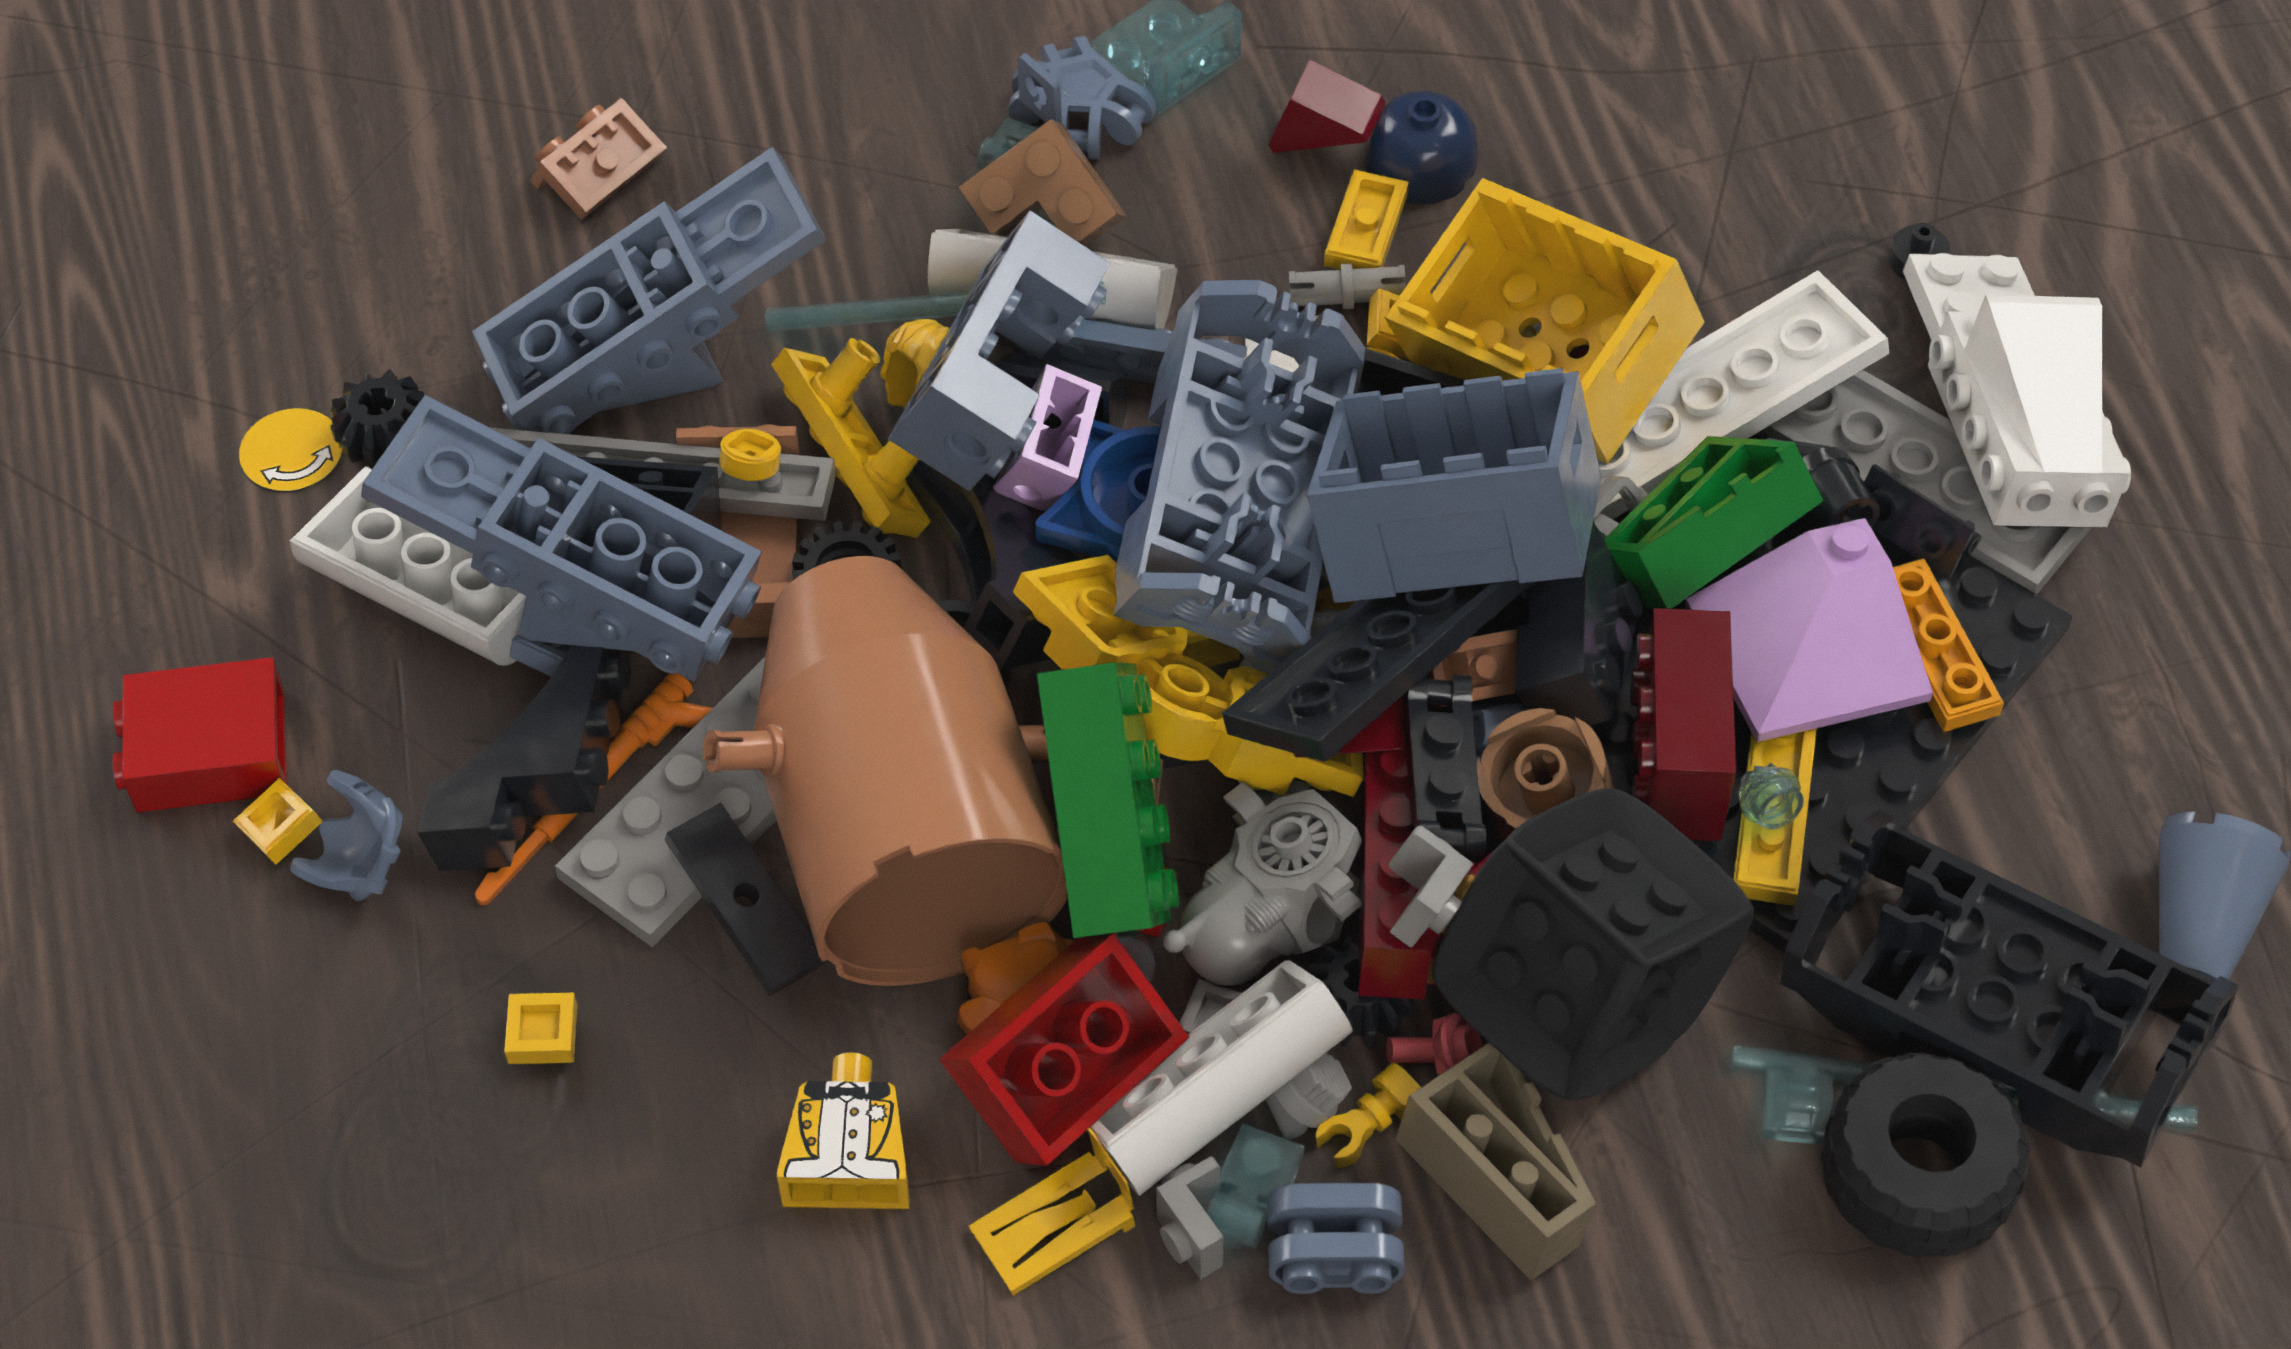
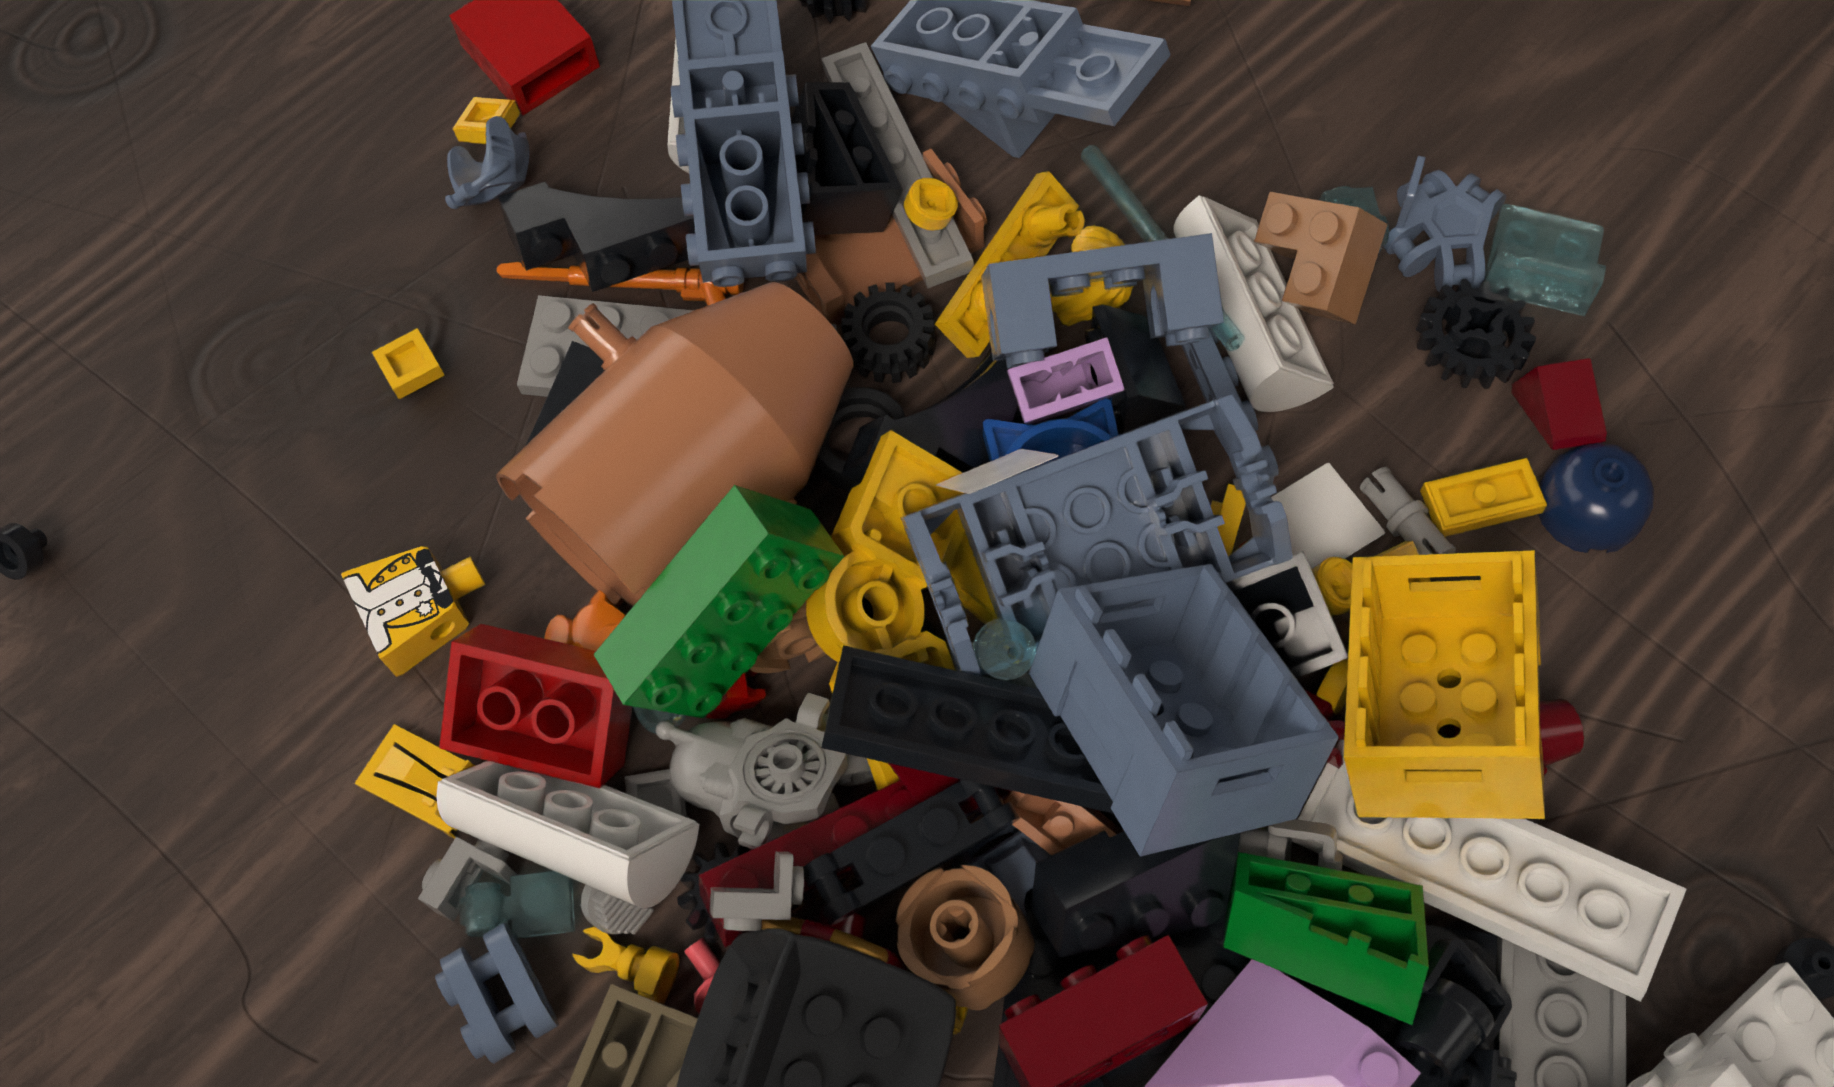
camera: 65 degrees right, 10 degrees up
(1126, 511) = (996, 470): none -> white sticker
(1231, 129) = (1475, 333): none -> black gear
(1308, 597) = (992, 647): none -> clear light blue tile

